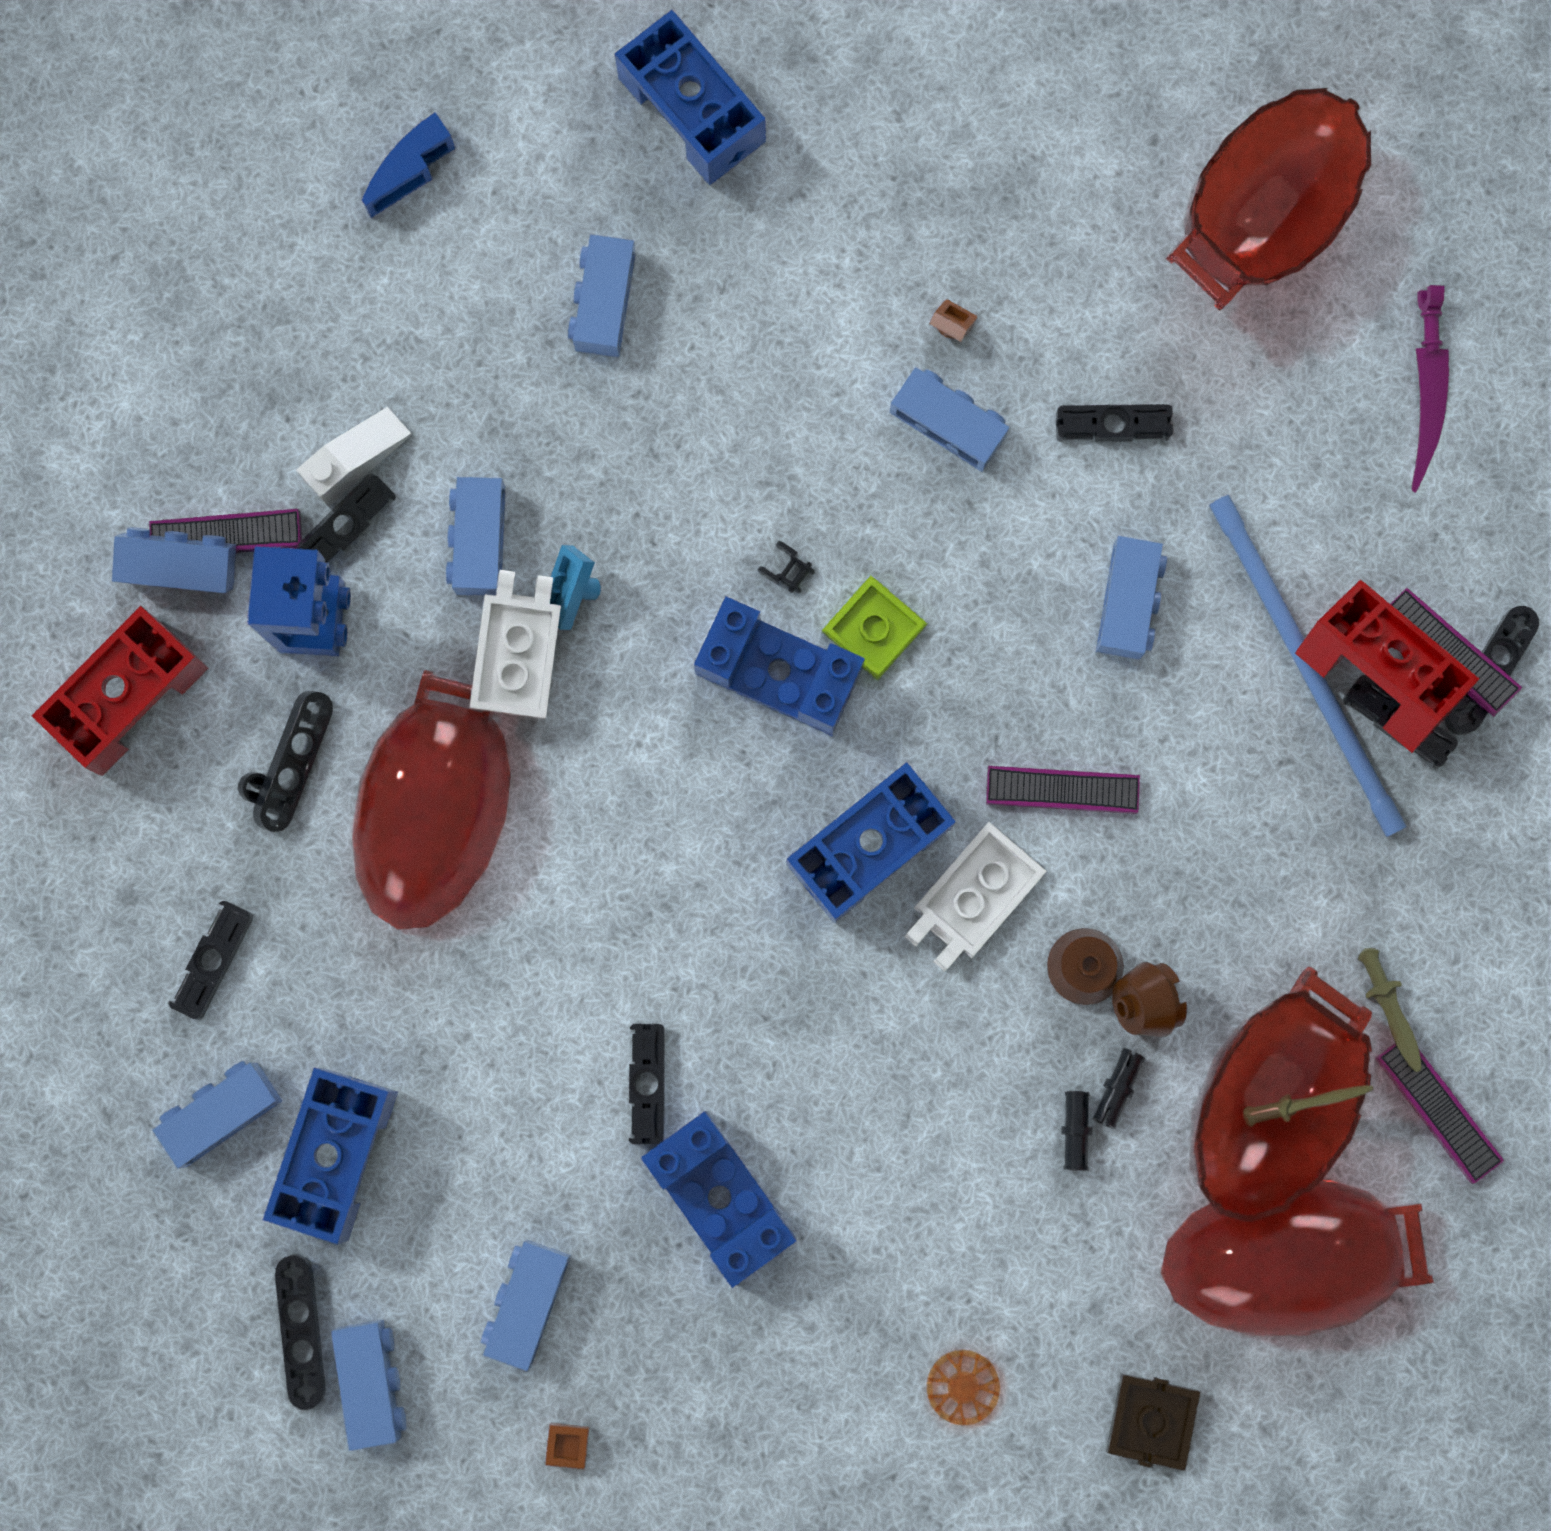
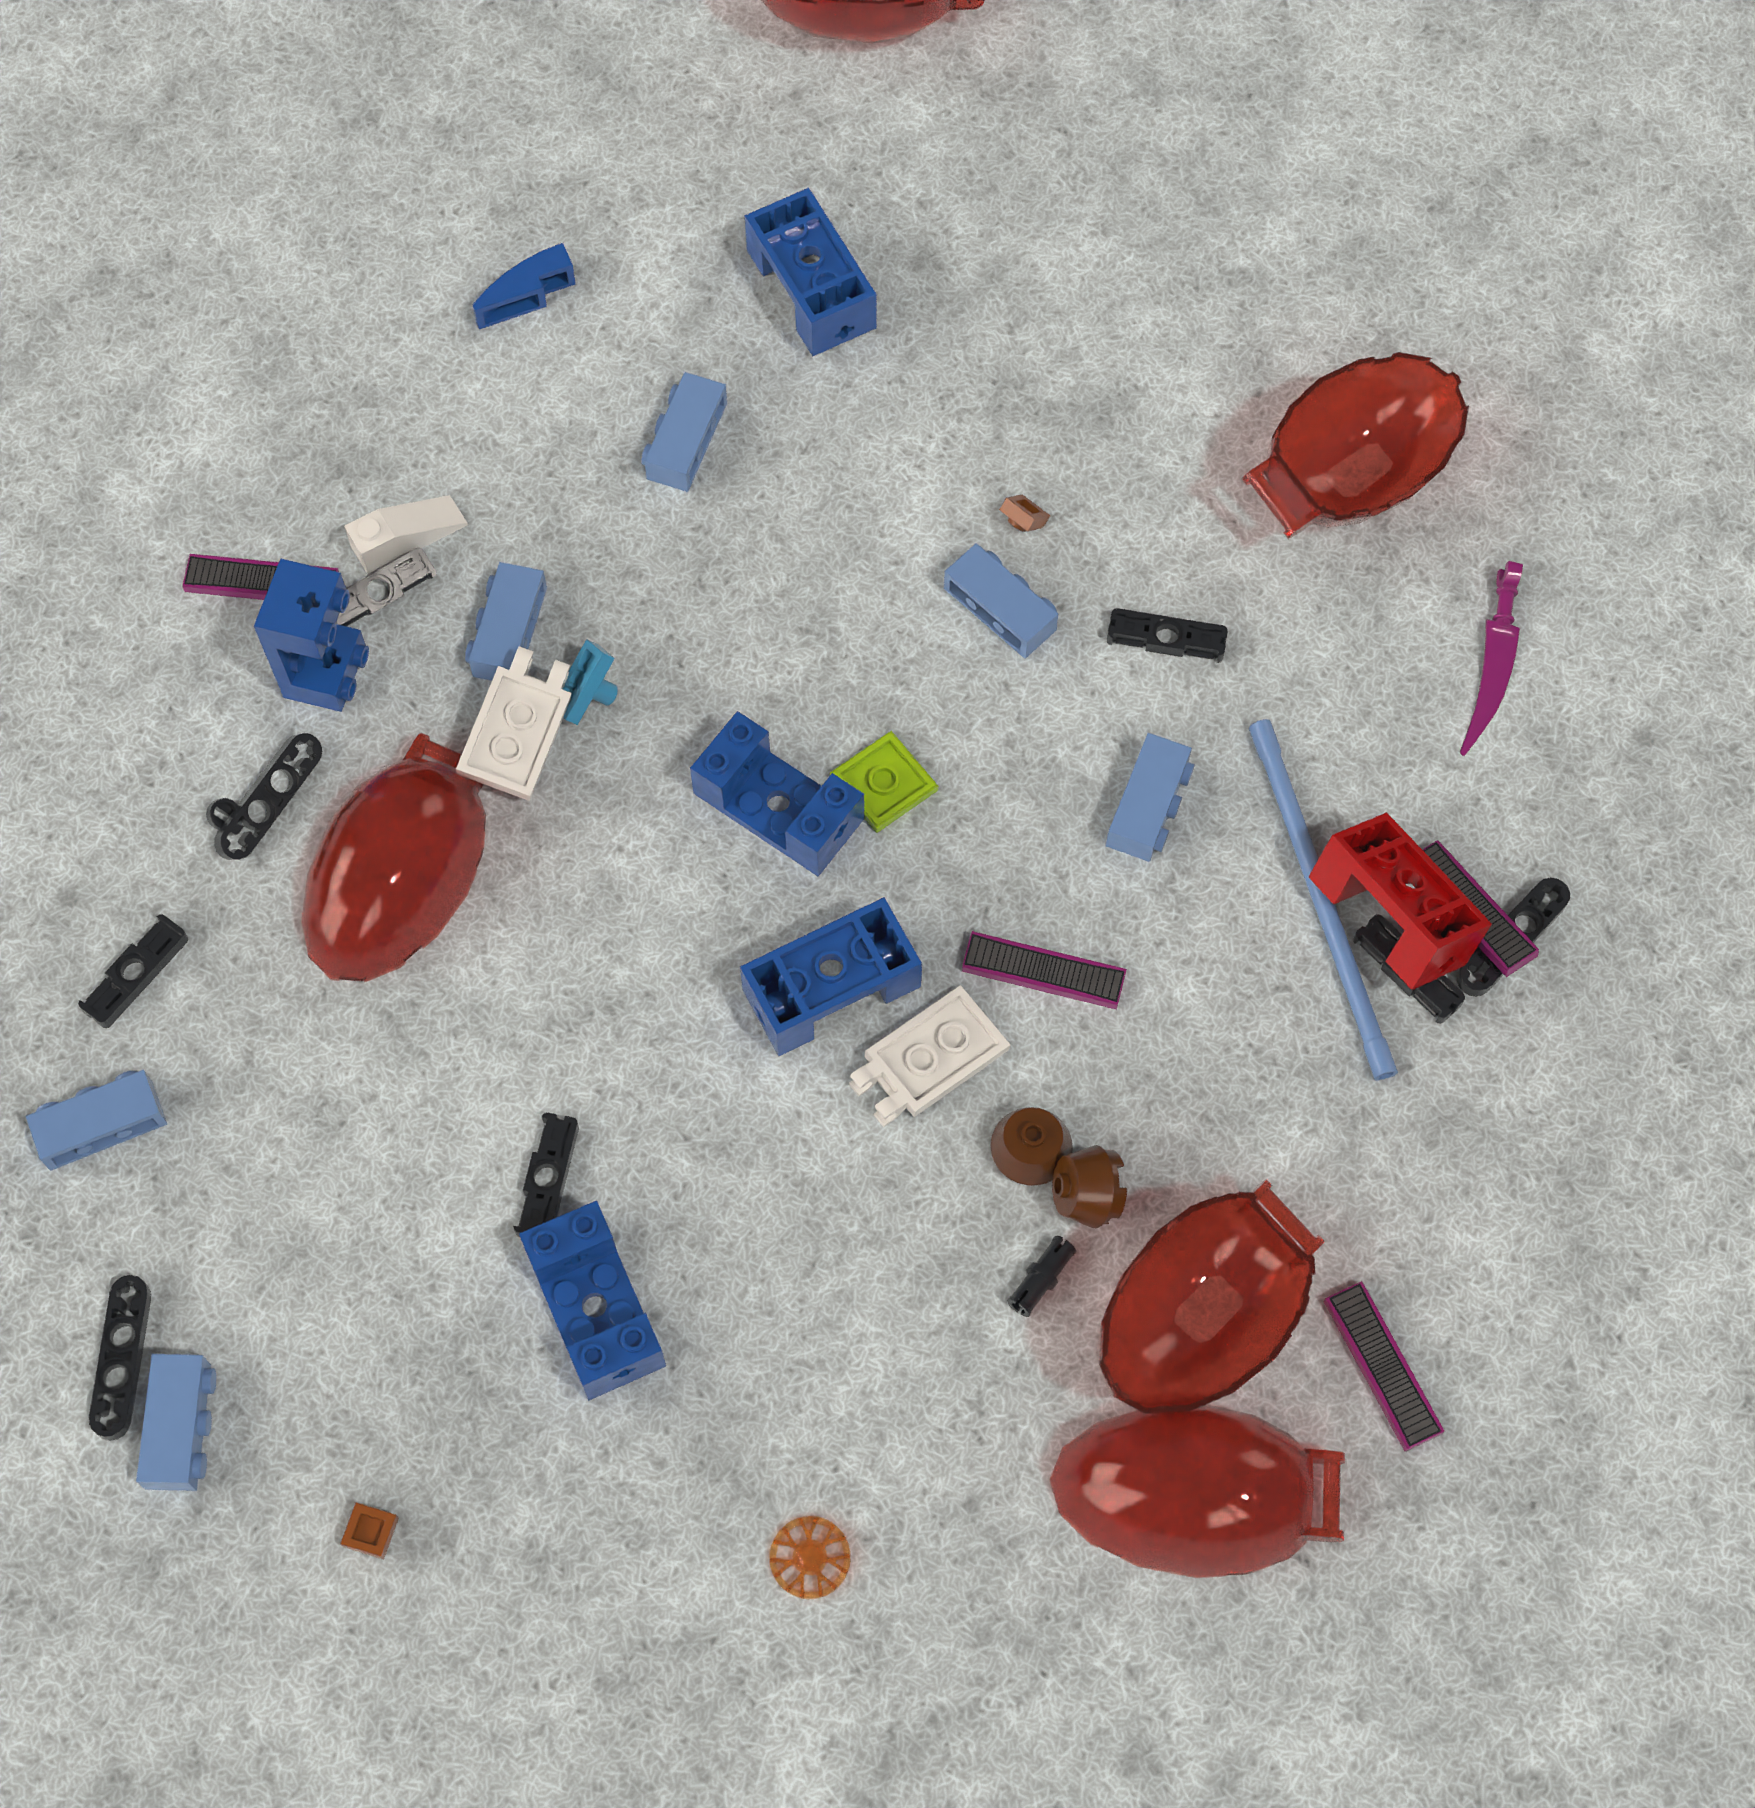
camera: 10 degrees right, 15 degrees down
(149, 664) = (78, 712): red plate -> none
(174, 561) = (202, 589): medium blue brick -> none
(336, 1113) = (175, 1211): blue plate -> none
(525, 1304) = (363, 1372): medium blue brick -> none
(805, 569) = (796, 717): black piece -> none
(1076, 1130) = (988, 1311): black pin -> none
(1153, 1422) = (1008, 1633): dark brown plate -> none
(1287, 1107) = (1216, 1321): olive sword -> none
(1385, 994) = (1345, 1235): olive sword -> none

